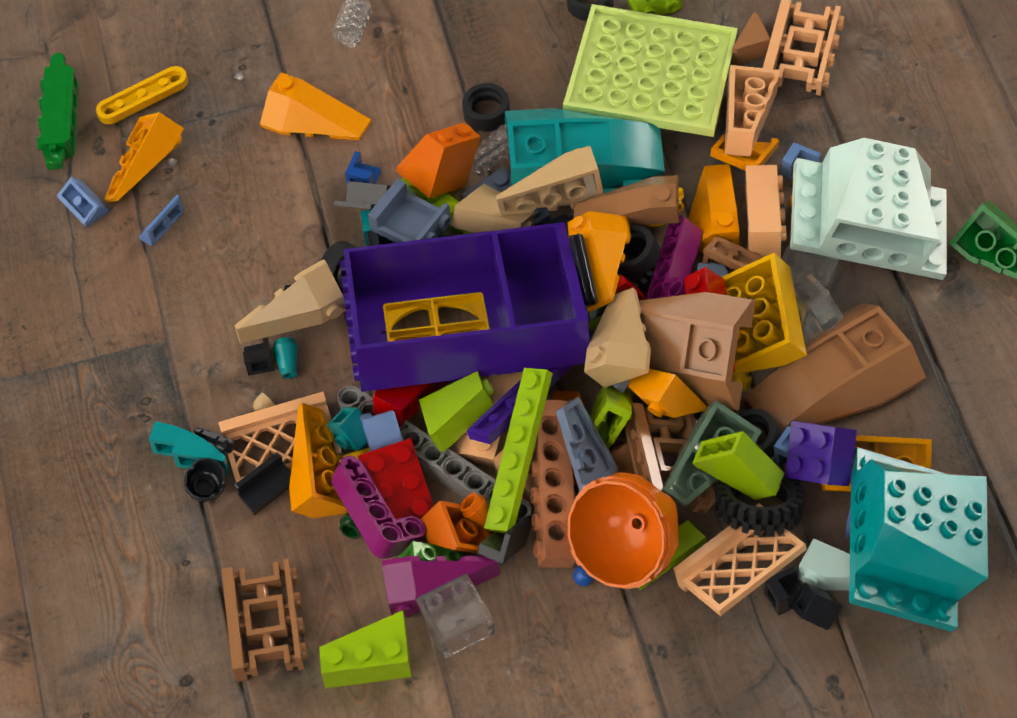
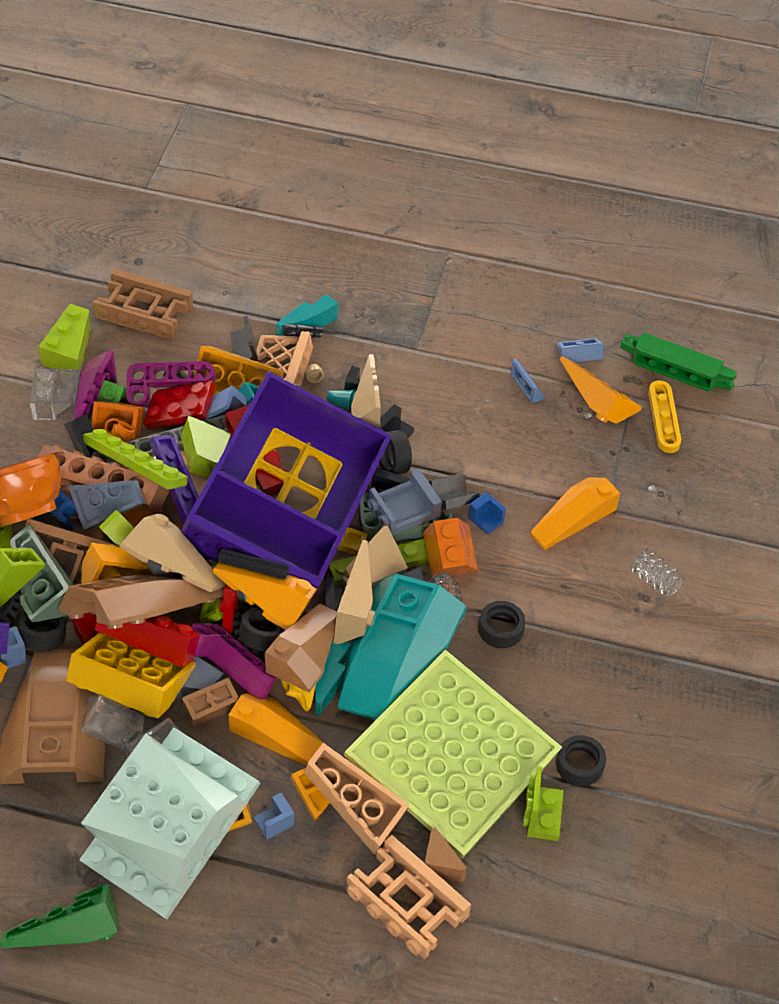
camera: 110 degrees right, 5 degrees down
(205, 480) = (271, 314): black hair -> none
(764, 209) = (242, 749): light nougat wedge -> none

